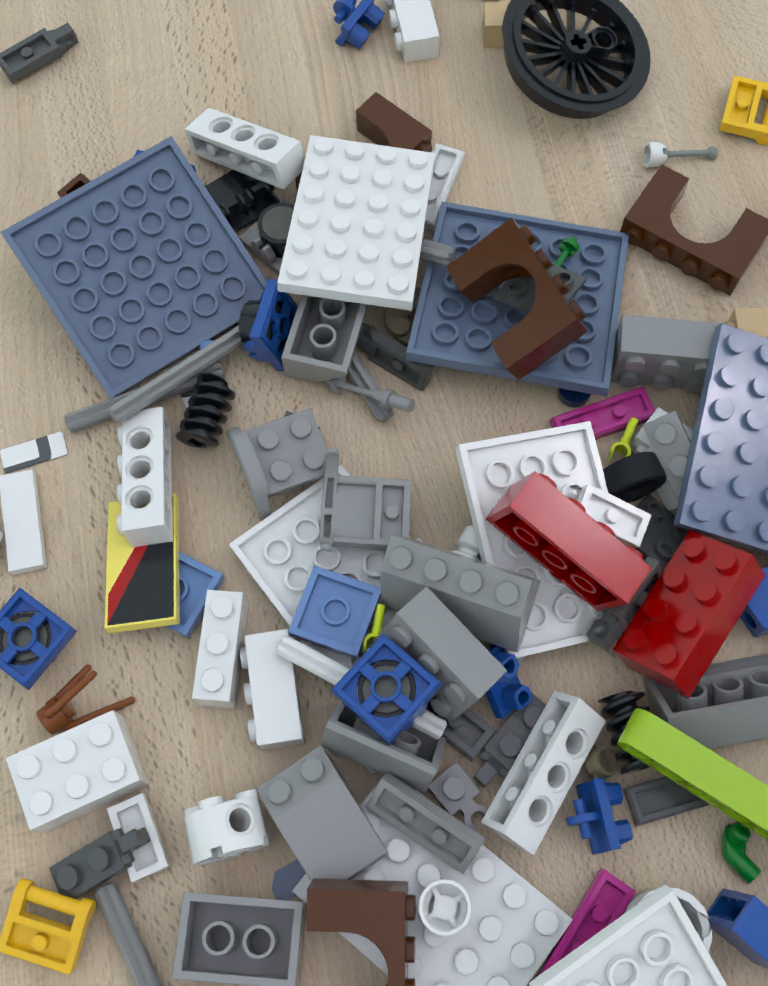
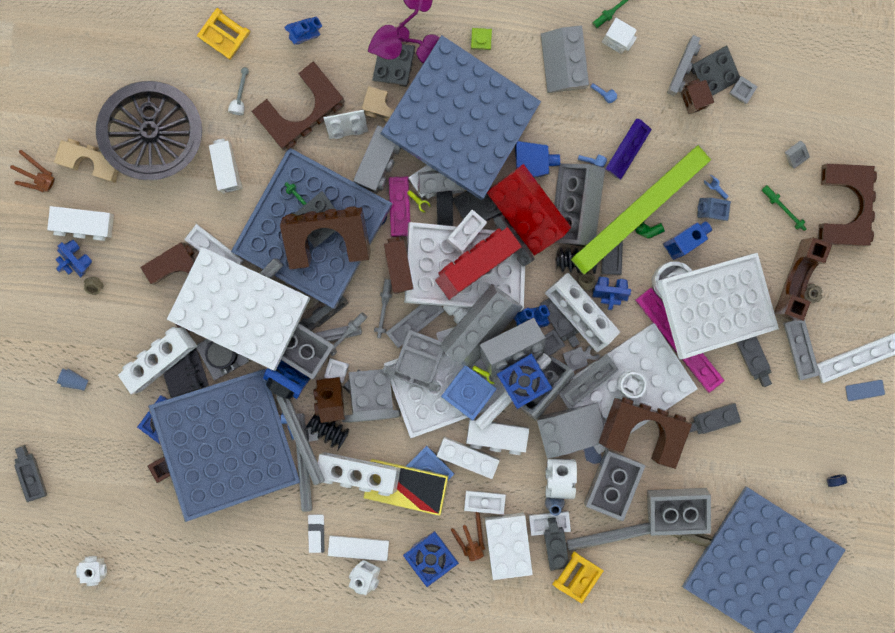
camera: 75 degrees left, 20 degrees up
(149, 706) = (484, 502): none -> white plate
(171, 835) = (551, 502): none -> sand blue cone
(185, 62) = (71, 380): none -> sand blue cone
(255, 395) = (329, 400): none -> reddish brown brick
(309, 397) = (336, 369): none -> white tile
(329, 53) = (93, 285): none -> dark tan plate
(430, 495) = (414, 321): none -> light grey plate
(453, 439) = (385, 299): none -> light grey piece
(518, 404) = (398, 265): none -> reddish brown arch
(561, 158) = (224, 166): none -> white slope
(701, 291) = (346, 124): none -> white hinge

